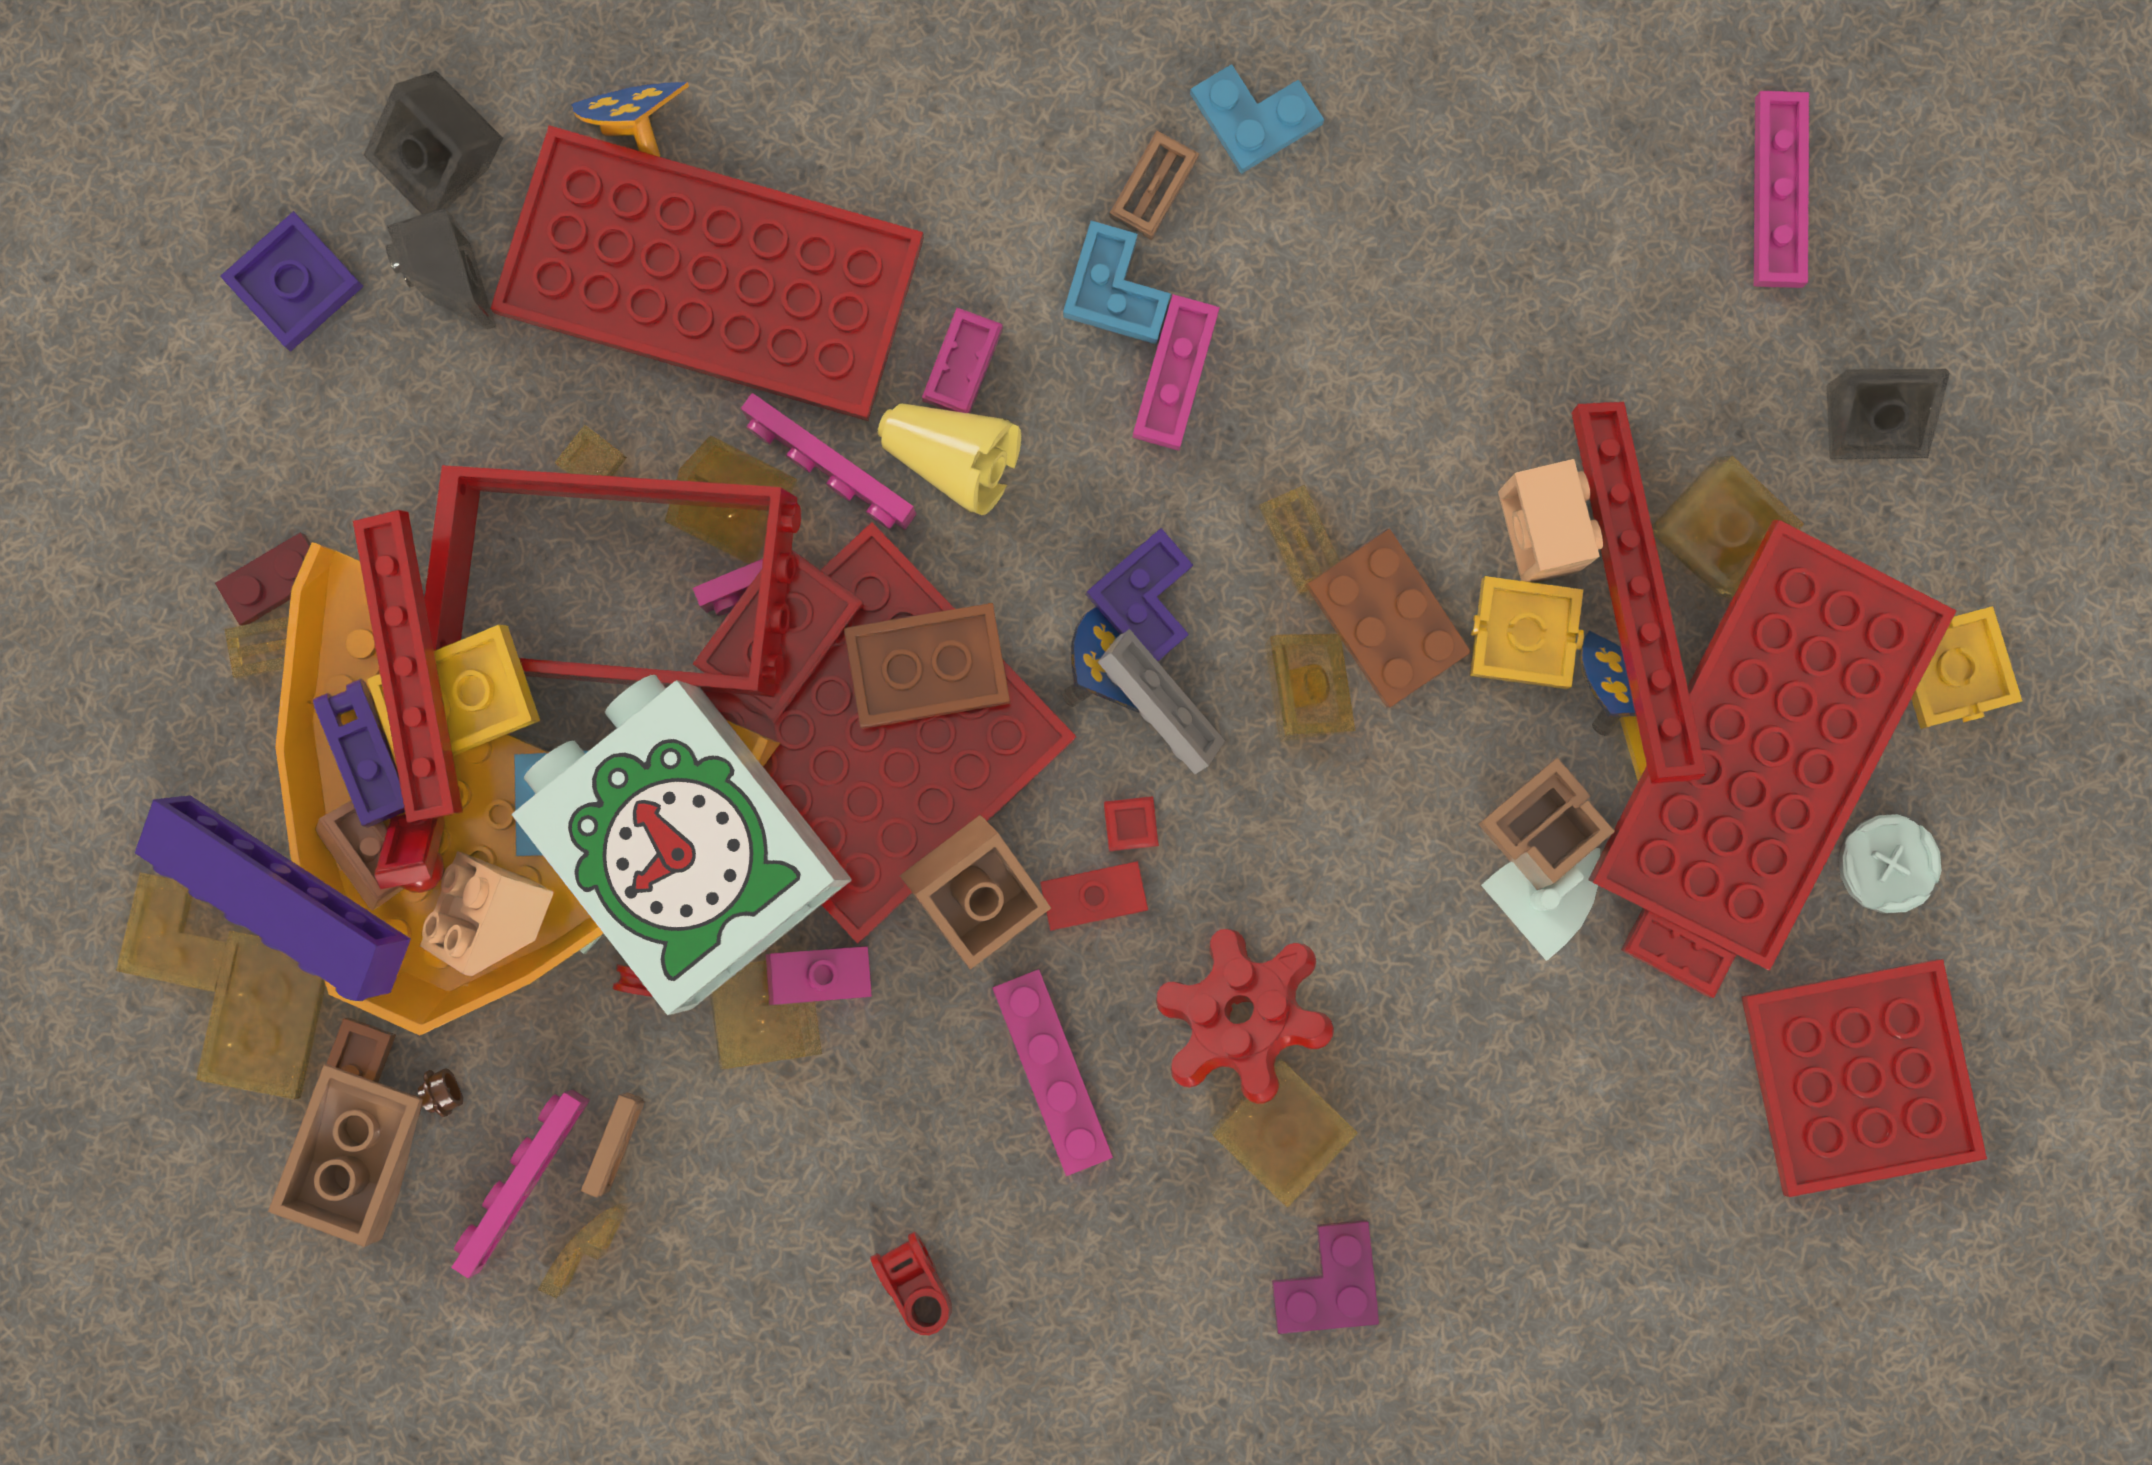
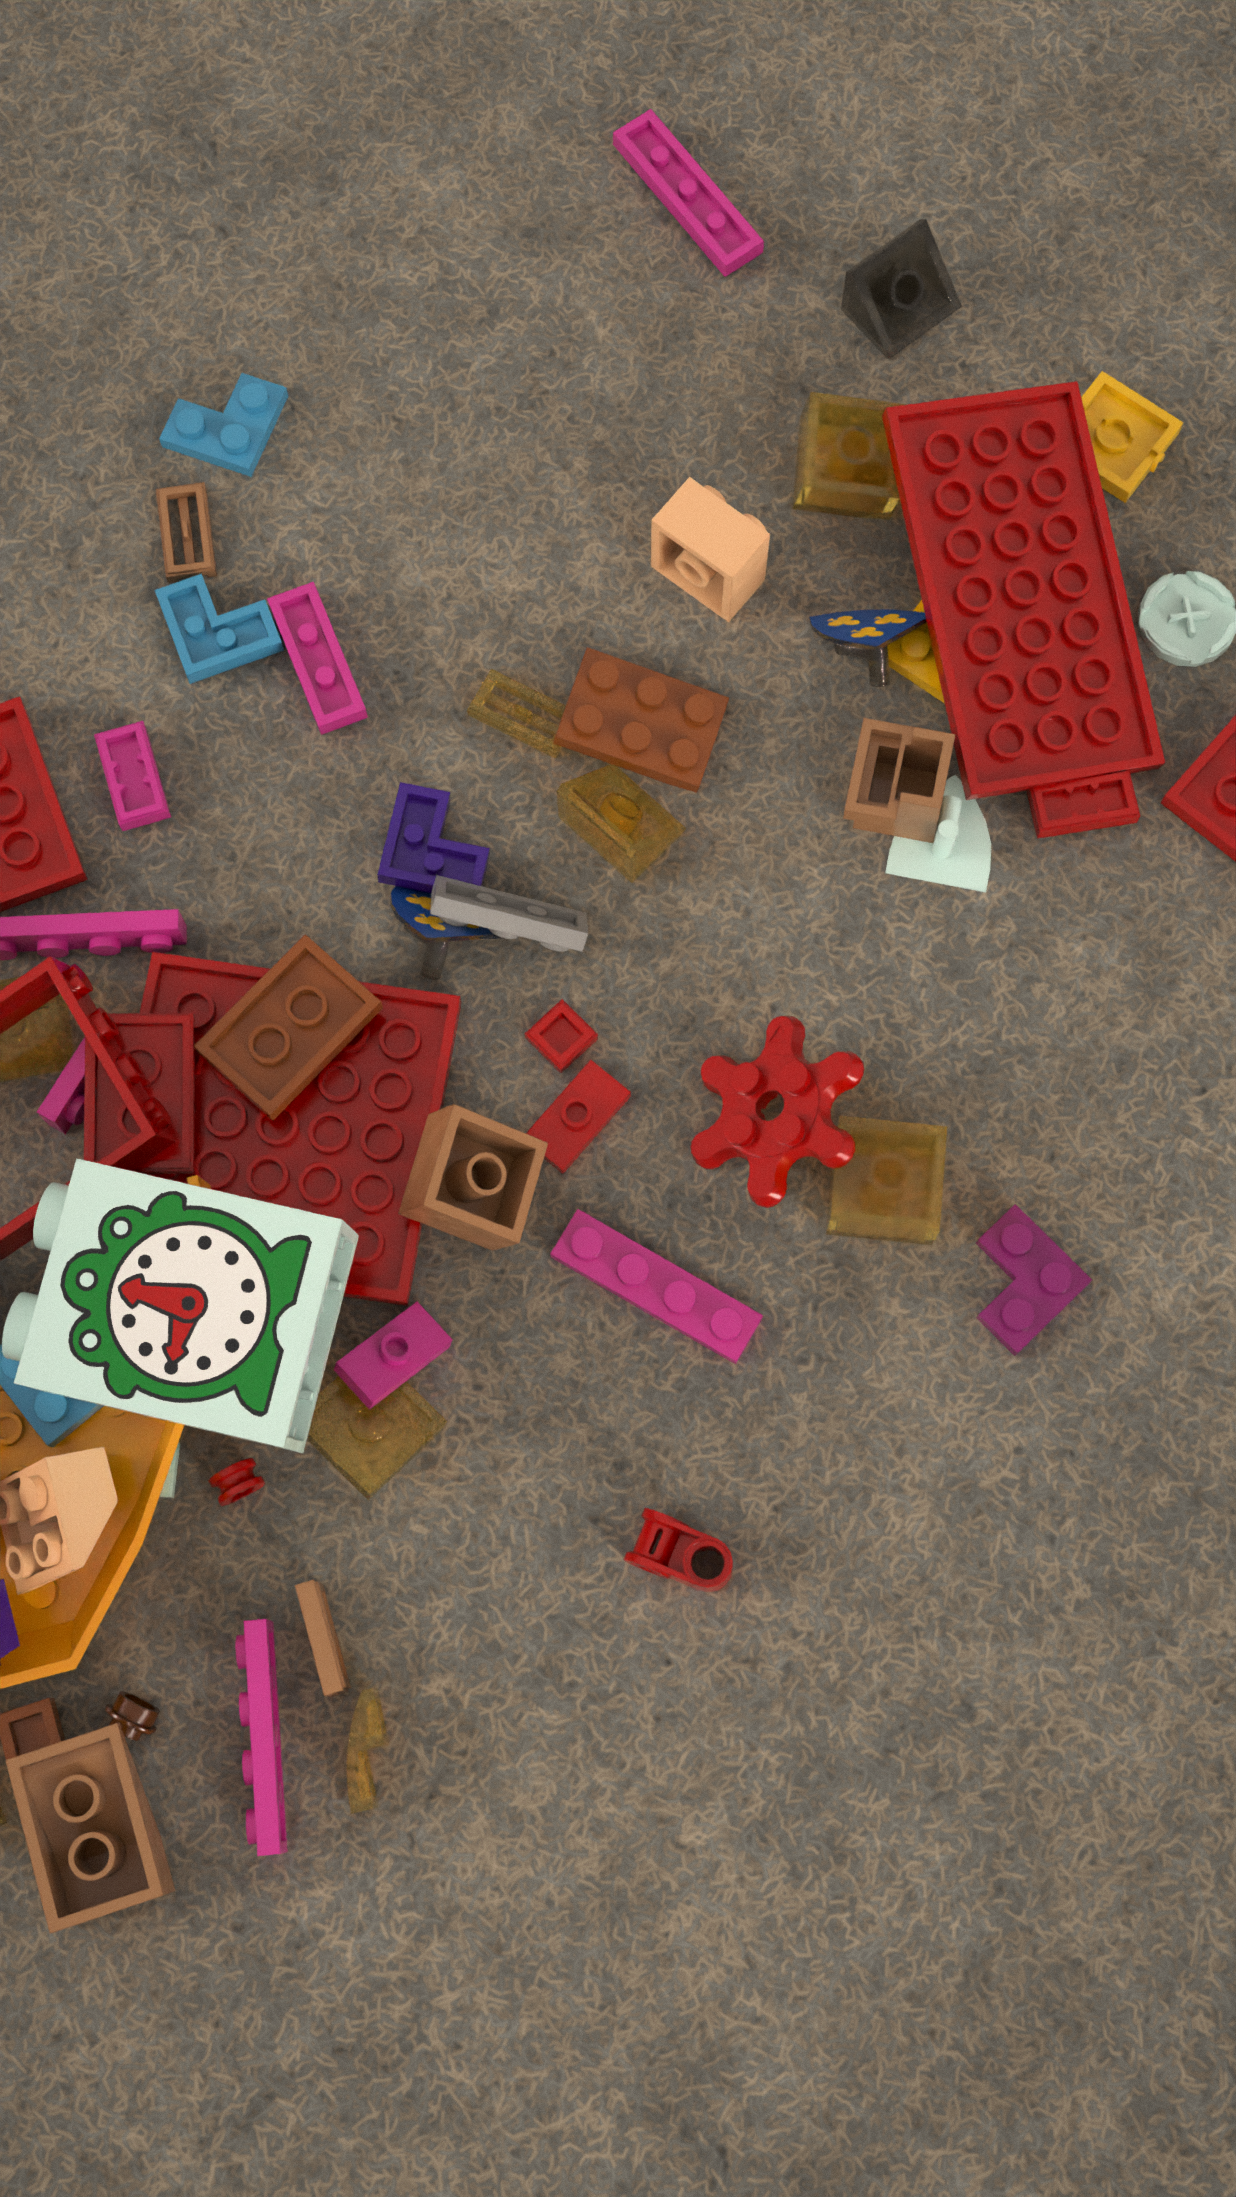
camera: 35 degrees left, 10 degrees down
(953, 451) = (177, 844): light yellow cone -> none
(1526, 632) = (761, 651): yellow plate -> none
(1638, 594) = (830, 552): red plate -> none

